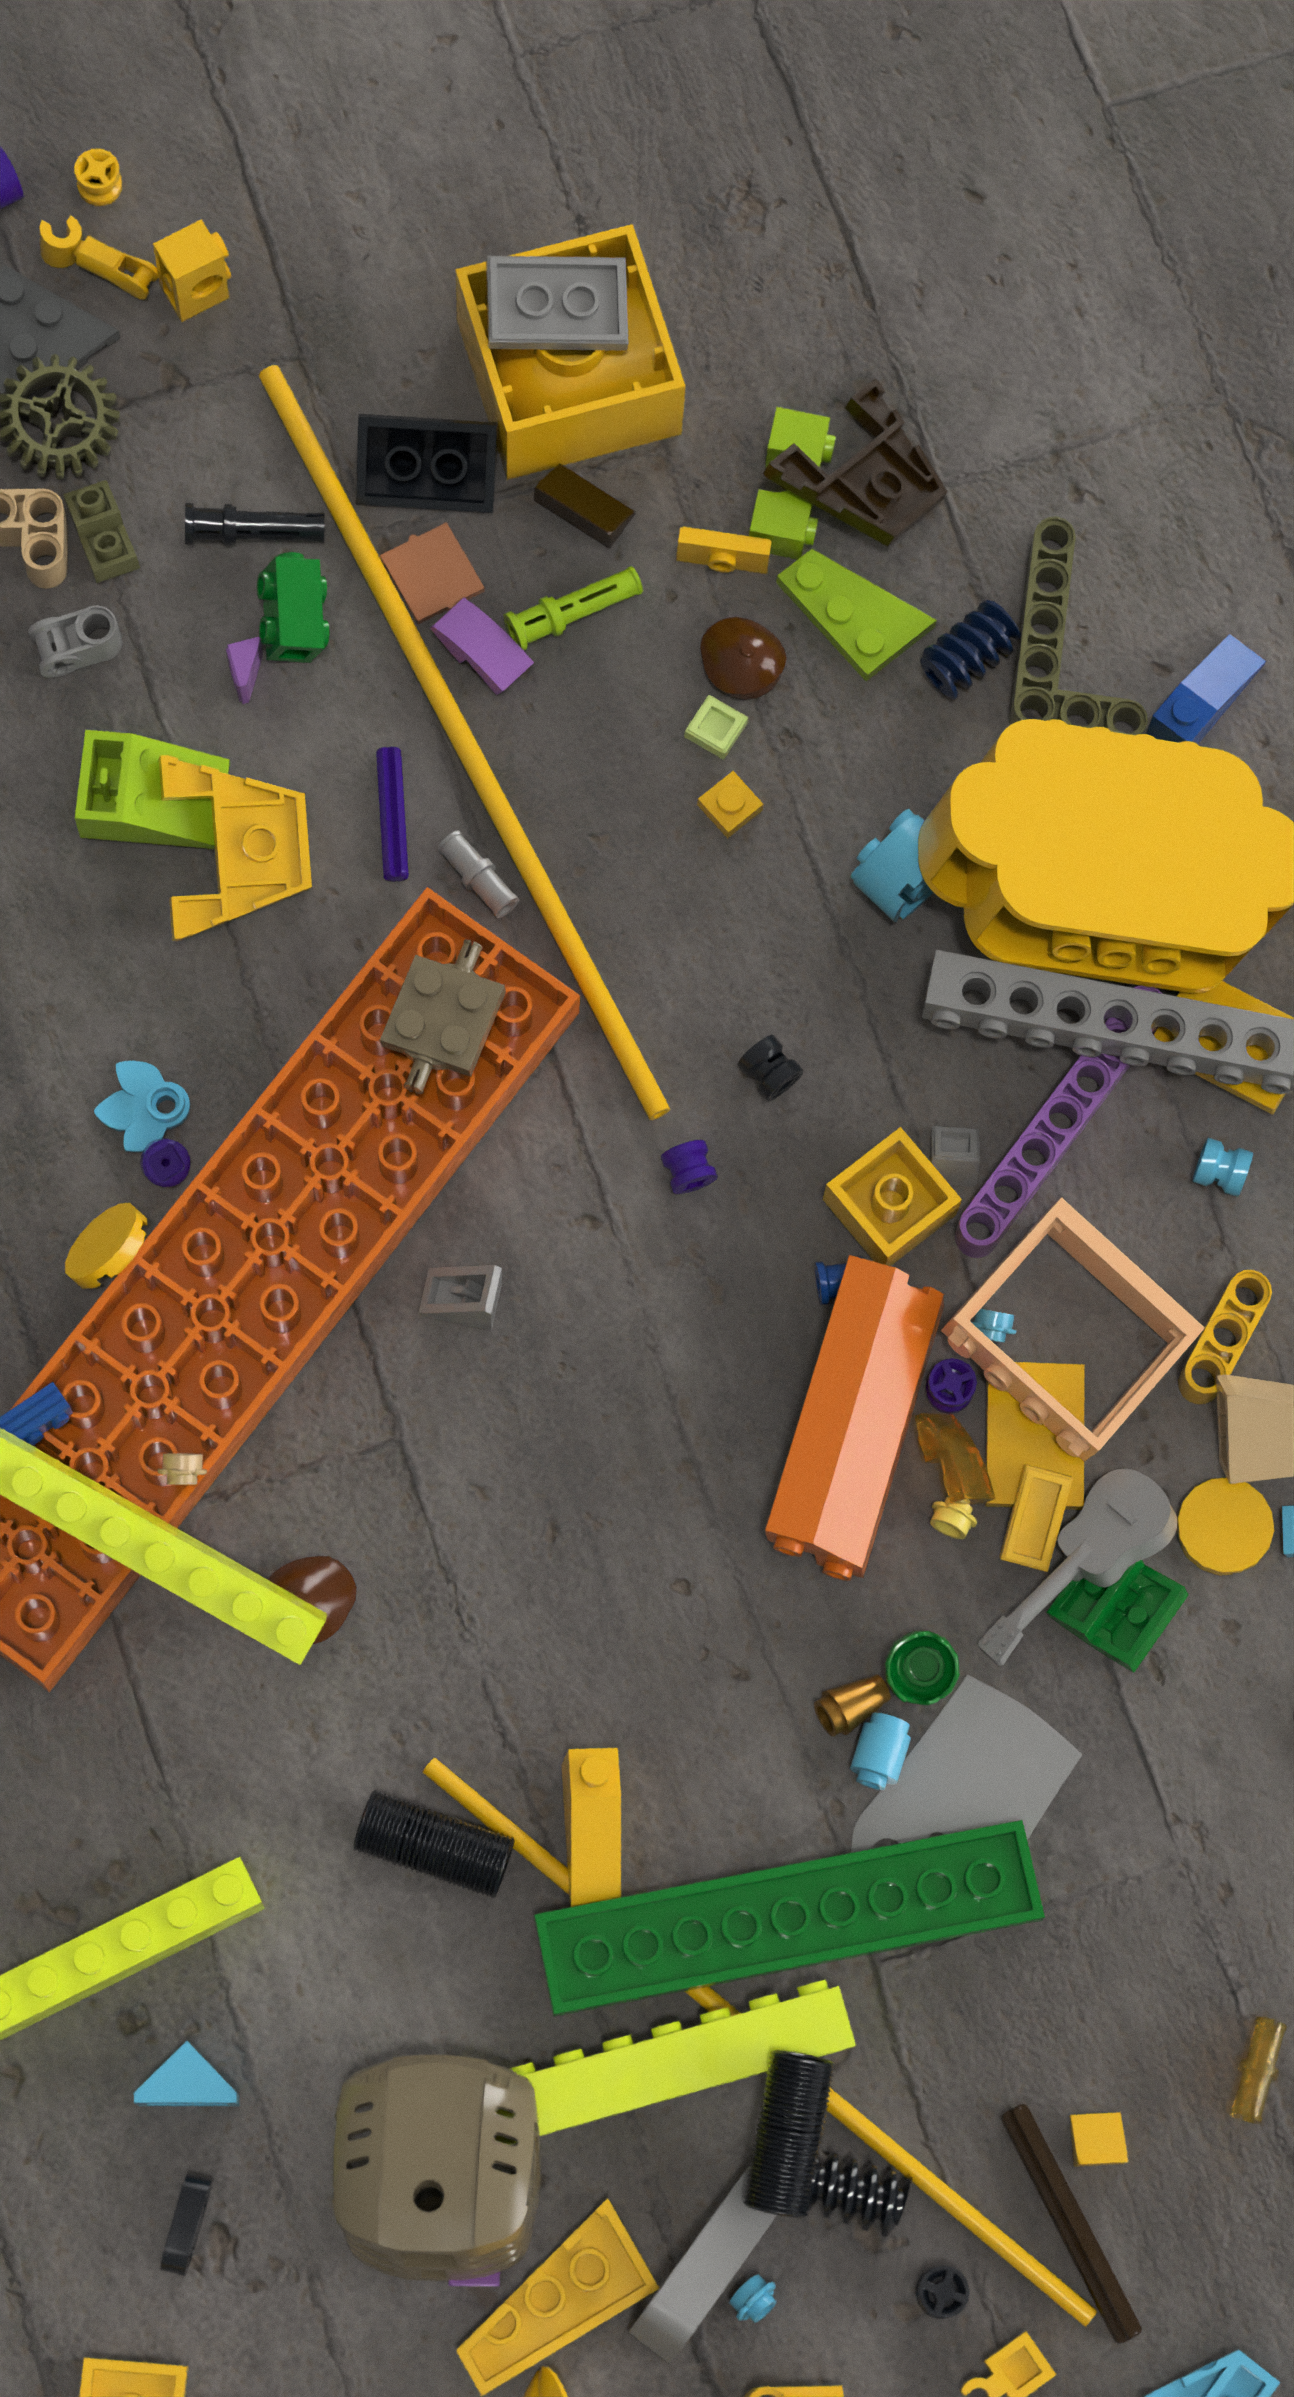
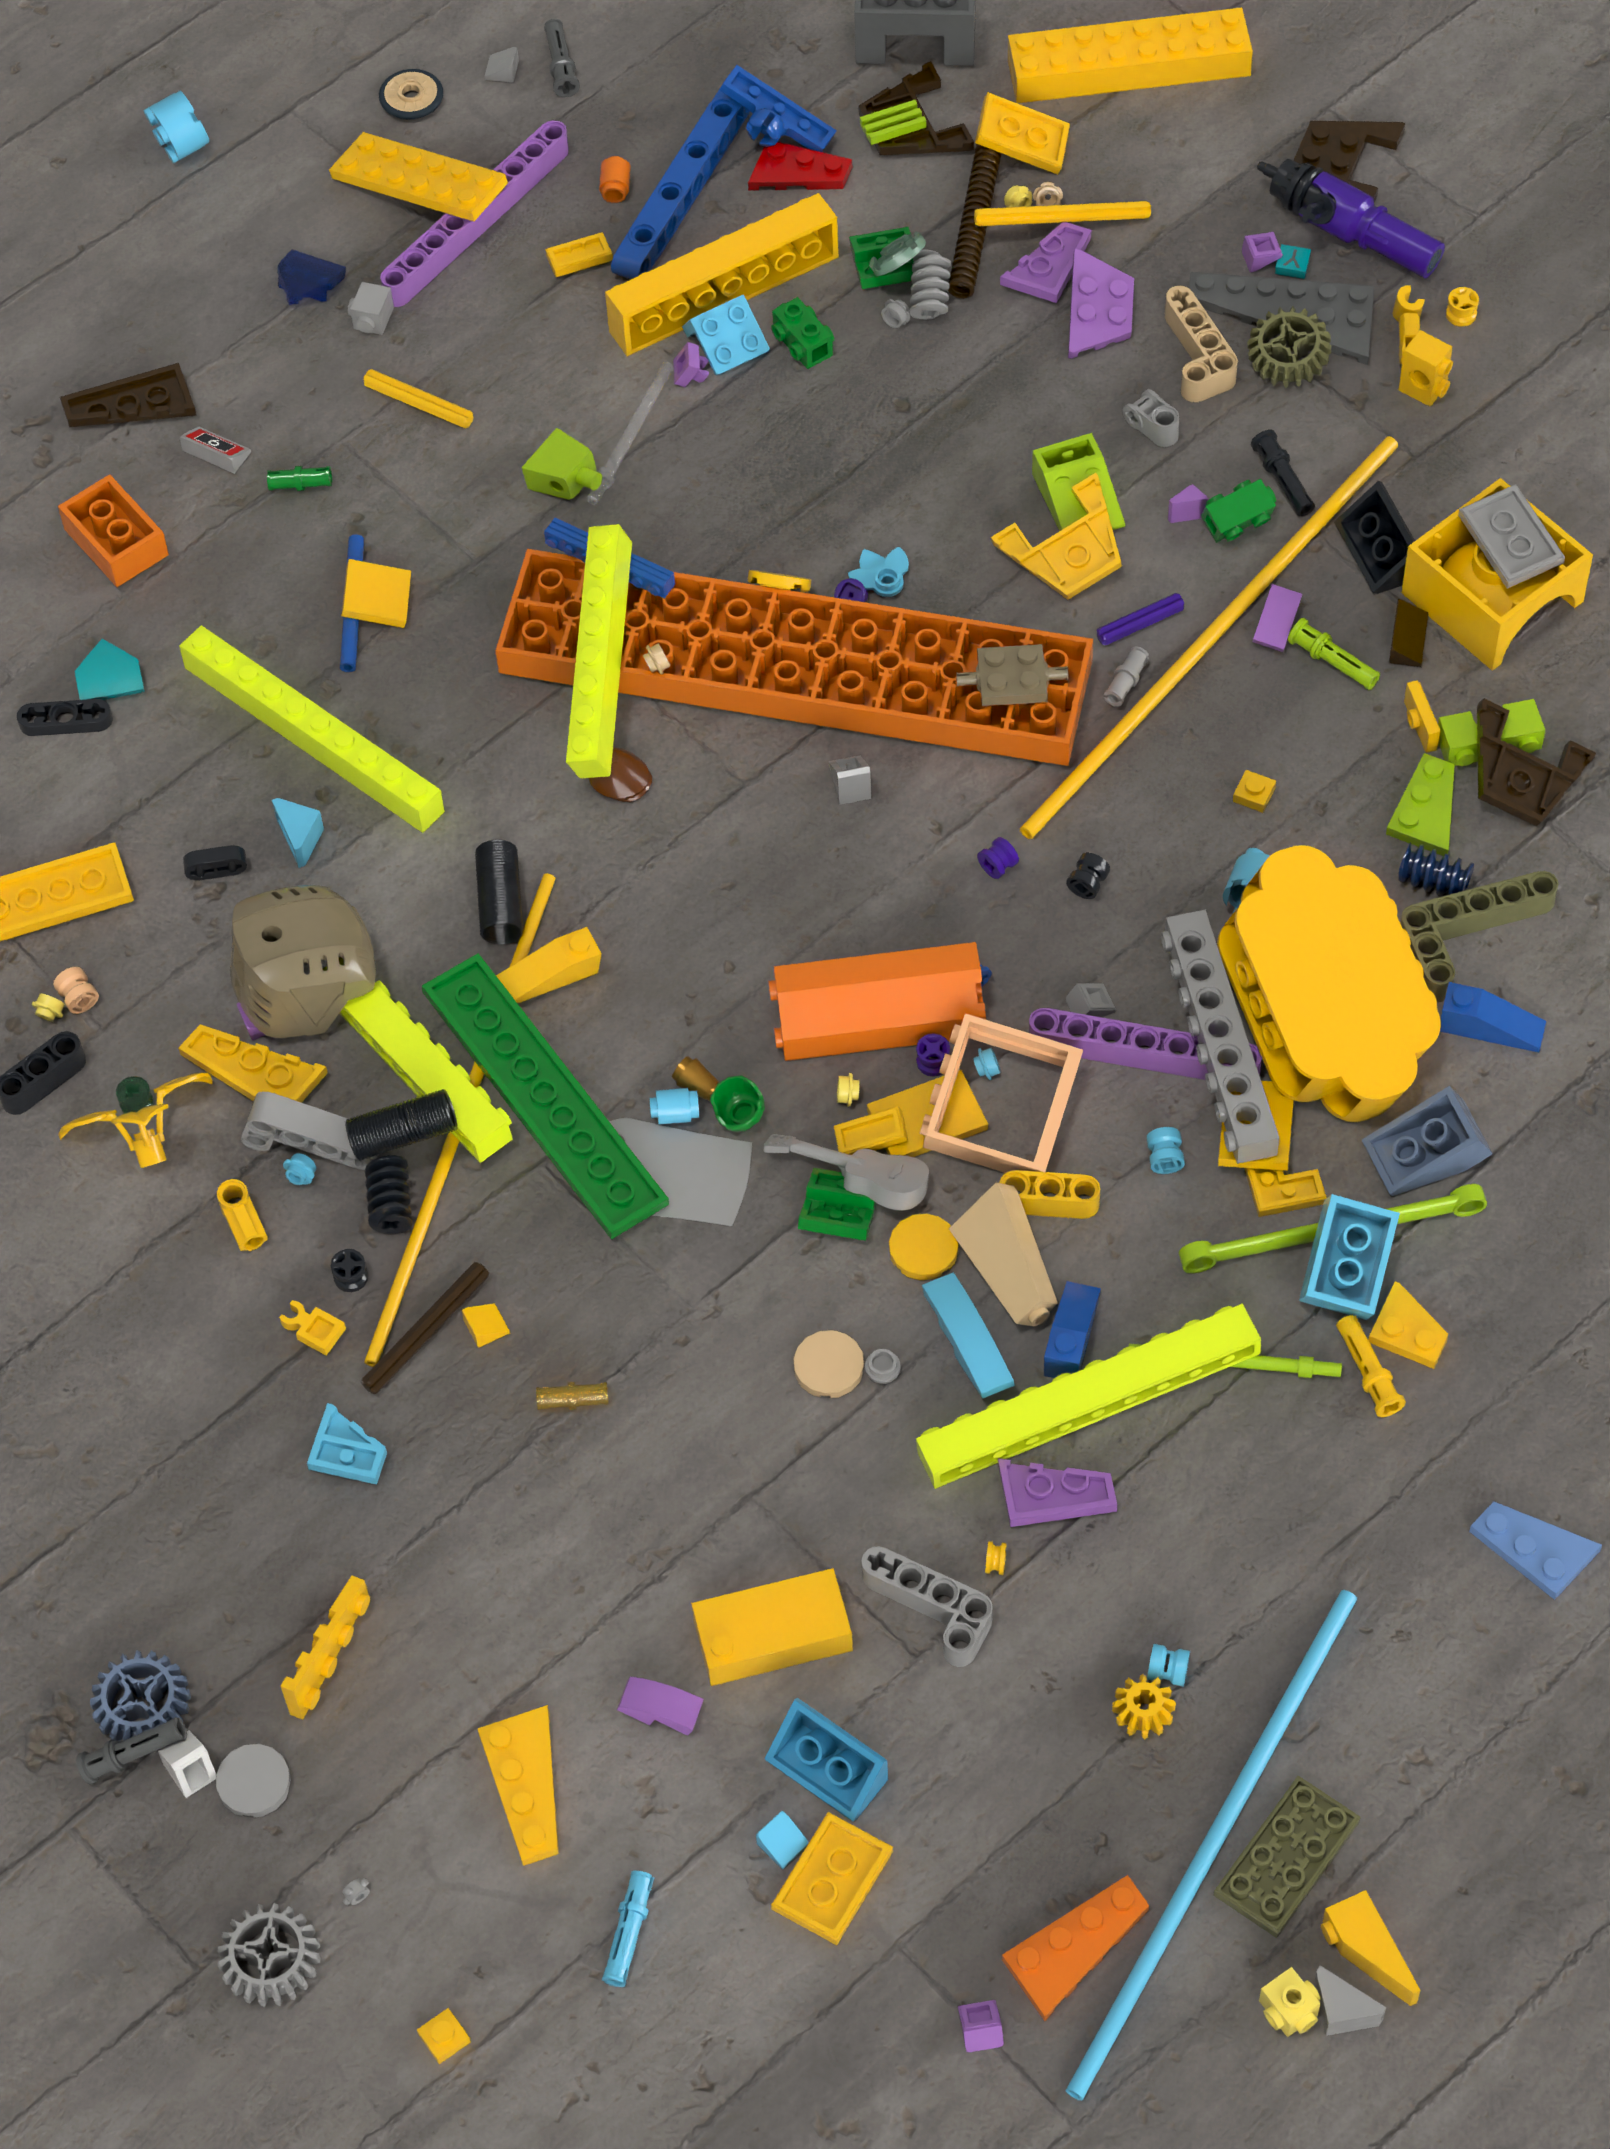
camera: 75 degrees right, 15 degrees down
(101, 531) = (1236, 403): olive slope -> none
(431, 573) = (1314, 577): nougat piece -> none
(716, 727) = (1302, 763): yellowish green tile -> none
(742, 657) = (1356, 758): reddish brown hat -> none
(891, 1198) = (1035, 968): yellow brick -> none
(948, 1443) = (884, 1072): clear yellow slope -> none

